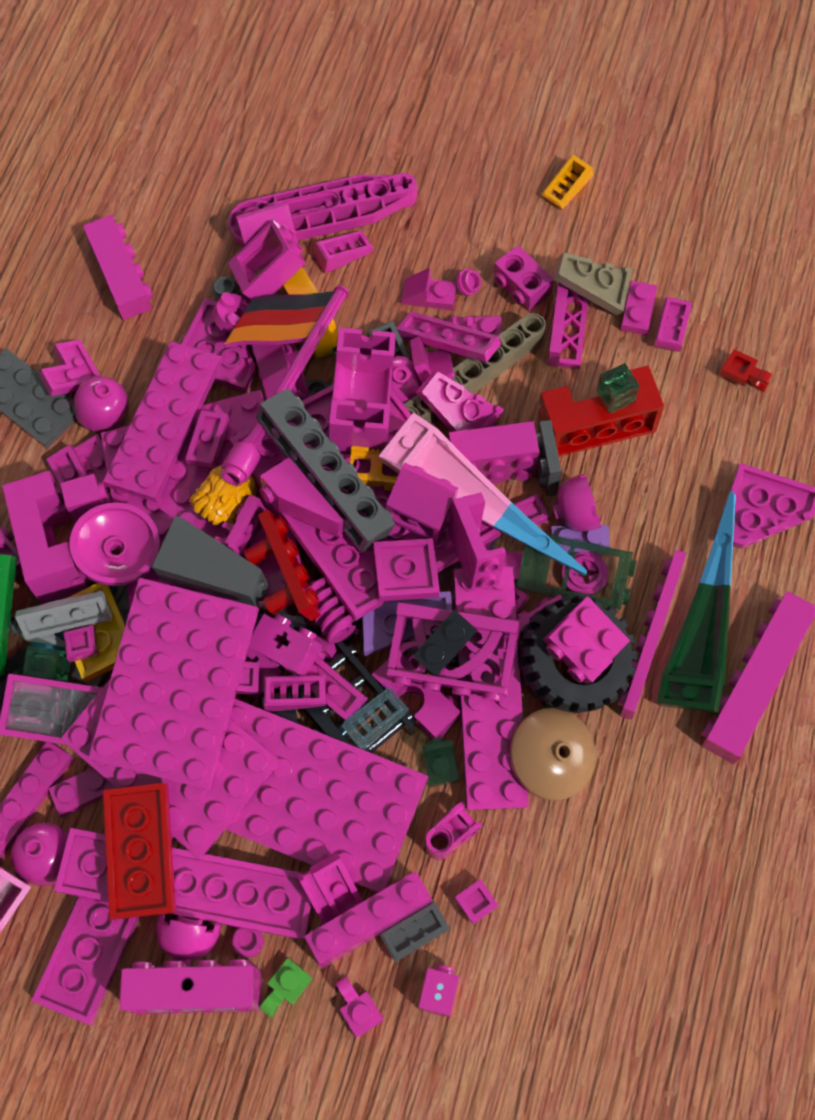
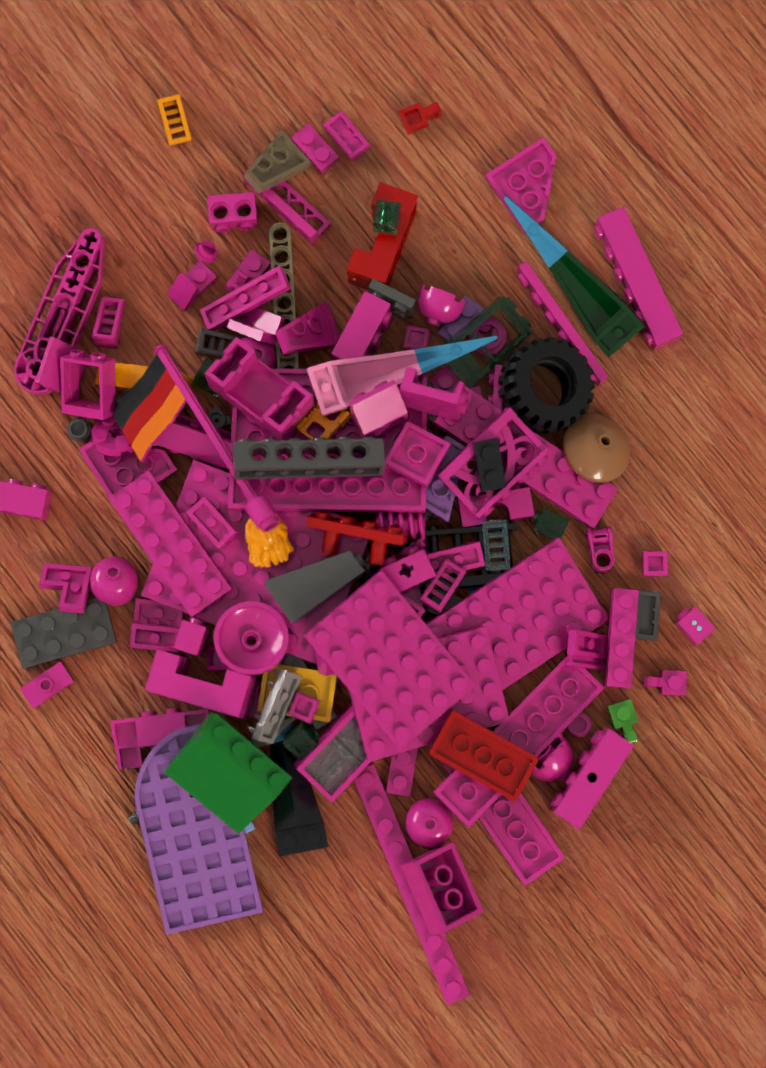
camera: 55 degrees left, 15 degrees up
(245, 526) = (298, 533): dark pink plate -> none
(297, 497) = (310, 491): dark pink slope -> none
(586, 641) = (550, 374): dark pink plate -> none

